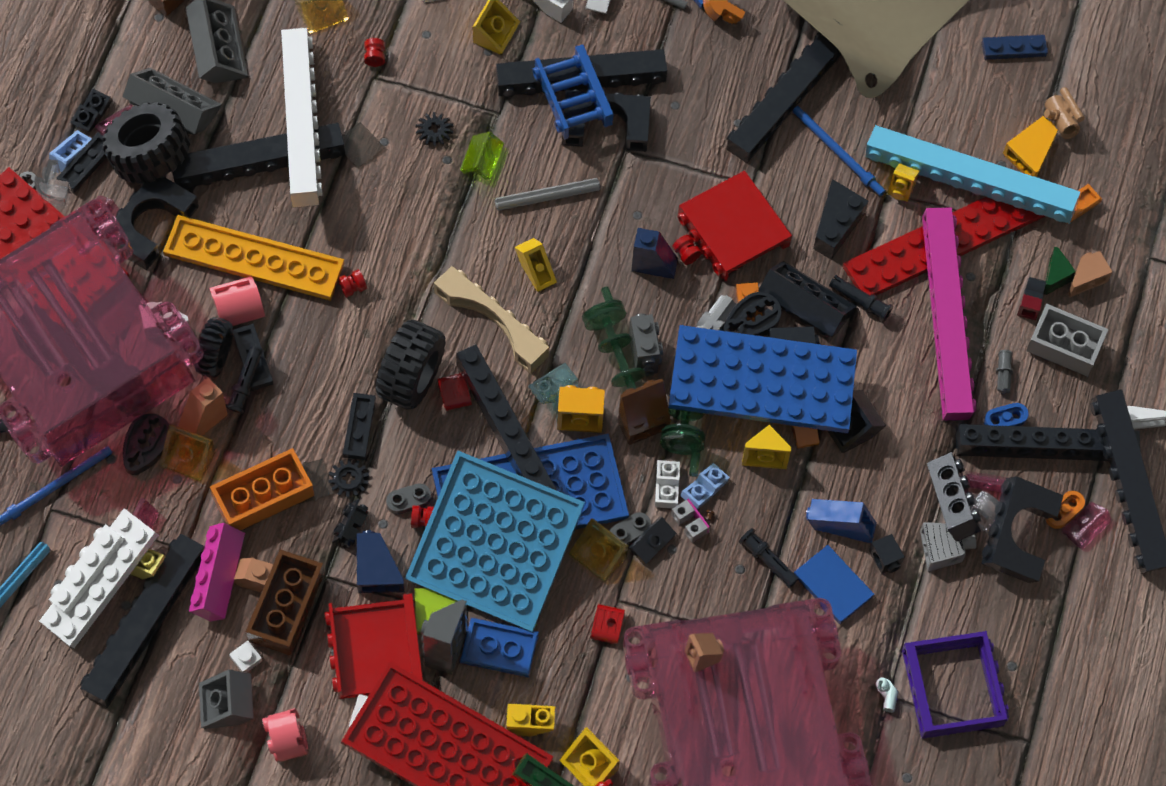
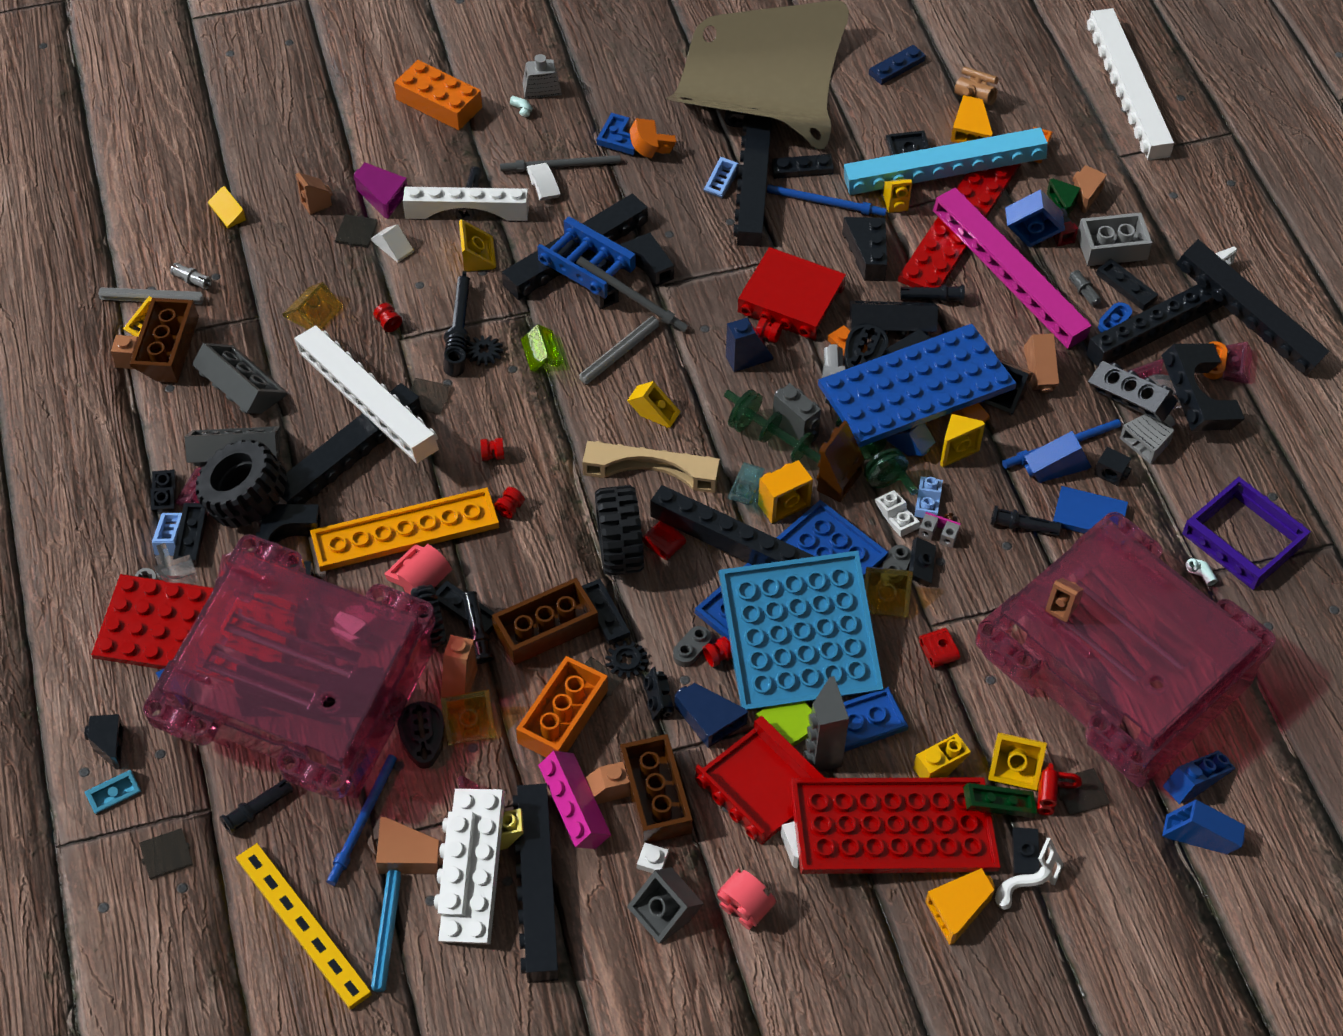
camera: 30 degrees left, 10 degrees down
(62, 531) = (406, 850): none -> nougat slope
(303, 406) = (545, 621): none -> reddish brown brick
(373, 226) = (492, 449): none -> red wheel
(418, 103) = (456, 336): none -> black piece
(608, 186) = (667, 316): none -> dark grey bar
(731, 429) = (913, 440): none -> slope
(756, 70) = (725, 164): none -> light blue slope
(844, 104) = (802, 166): none -> black plate
(872, 507) = (1020, 459): none -> blue bar
(901, 422) = (1042, 361): none -> nougat slope
(956, 136) = (906, 142): none -> black plate
(1003, 279) = (1035, 218): none -> blue brick
(1045, 390) = (1127, 284): none -> black plate

